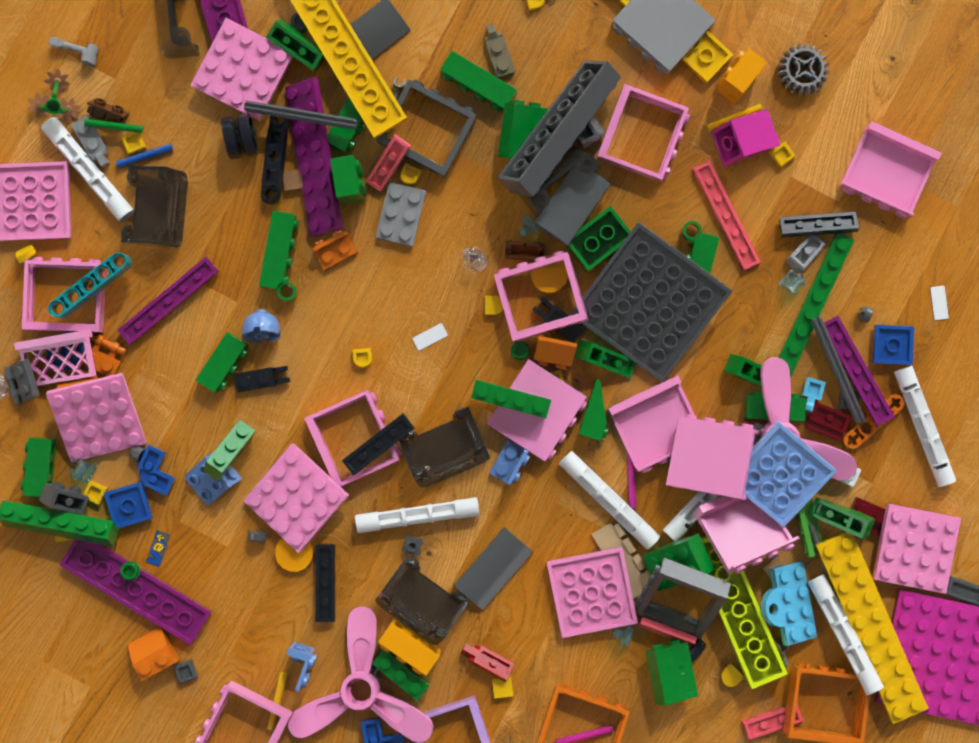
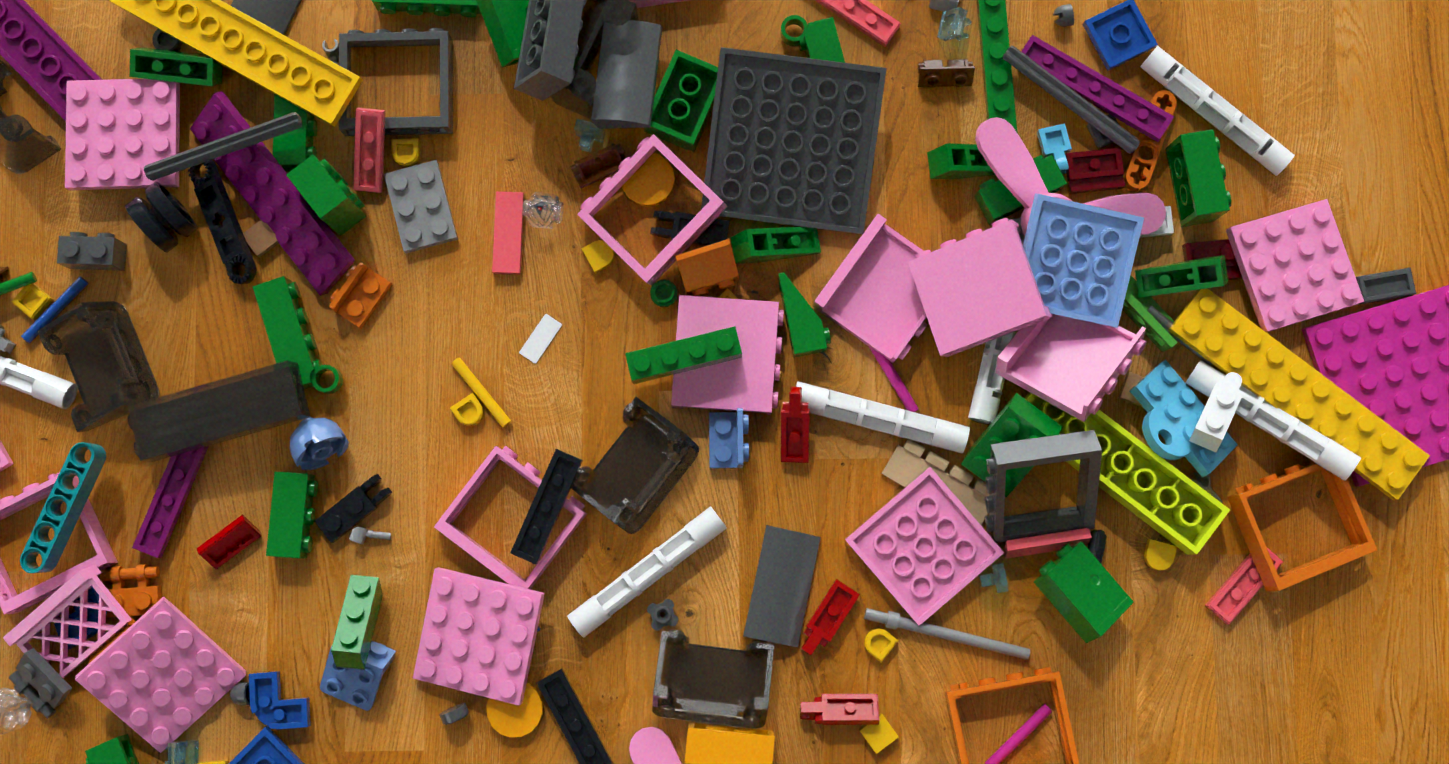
camera: 30 degrees left, 5 degrees down
(176, 358) = (229, 542): none -> red plate
(185, 134) = (91, 253): none -> dark grey brick
(212, 277) = (218, 411): none -> clear smoke brick
(257, 396) = (359, 535): none -> light grey hand
(376, 350) = (481, 392): none -> yellow bar
(445, 260) = (508, 233): none -> coral tile
(511, 602) = (829, 616): none -> red hinge
(532, 634) = (879, 643): none -> yellow tile
(548, 626) = (894, 620): none -> light grey bar
(553, 479) = (795, 428): none -> red hinge
(778, 313) = (957, 73): none -> reddish brown hinge
(813, 612) = (1218, 412): none -> white brick
(887, 462) = (1198, 178): none -> green brick

